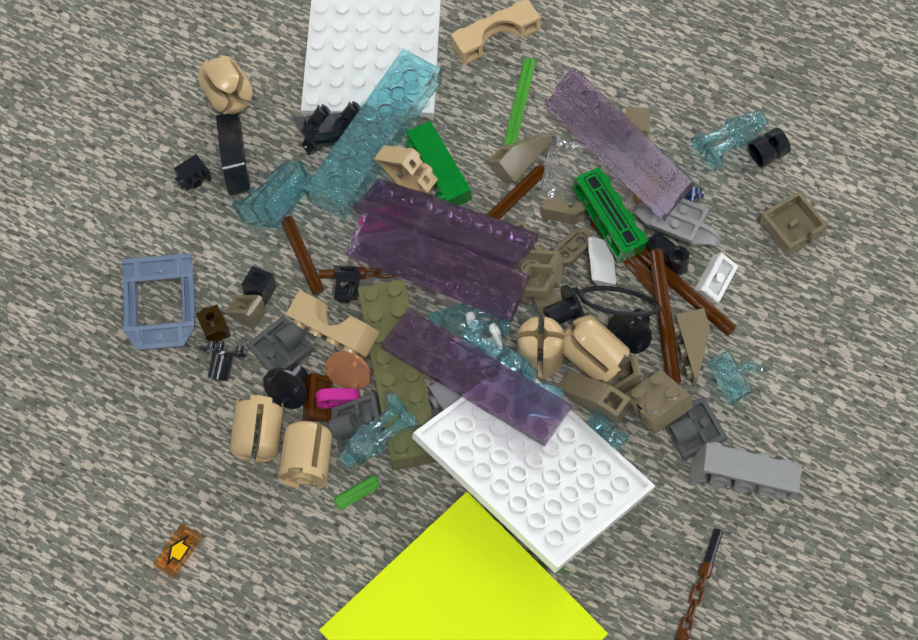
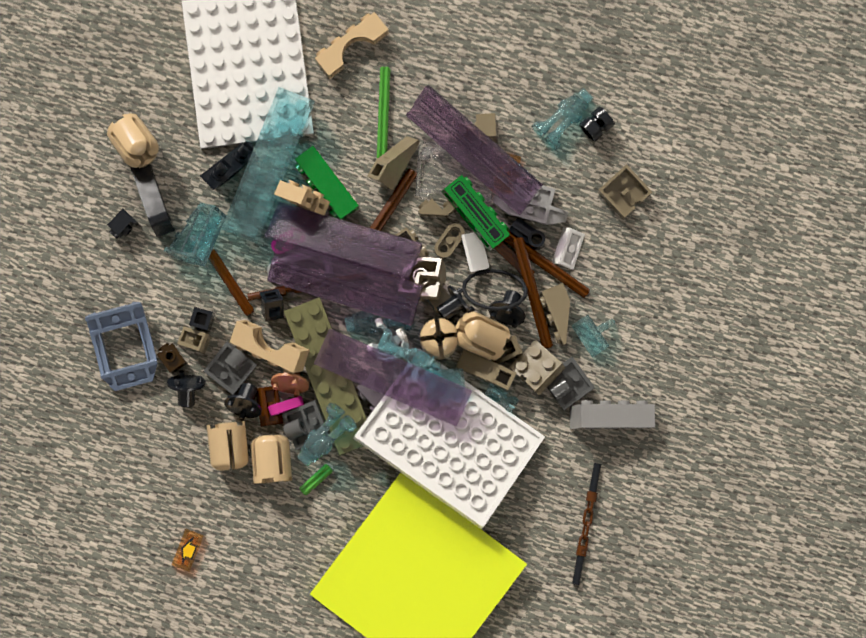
camera: 15 degrees left, 20 degrees up
(694, 194) = (541, 175): dark blue plate -> none

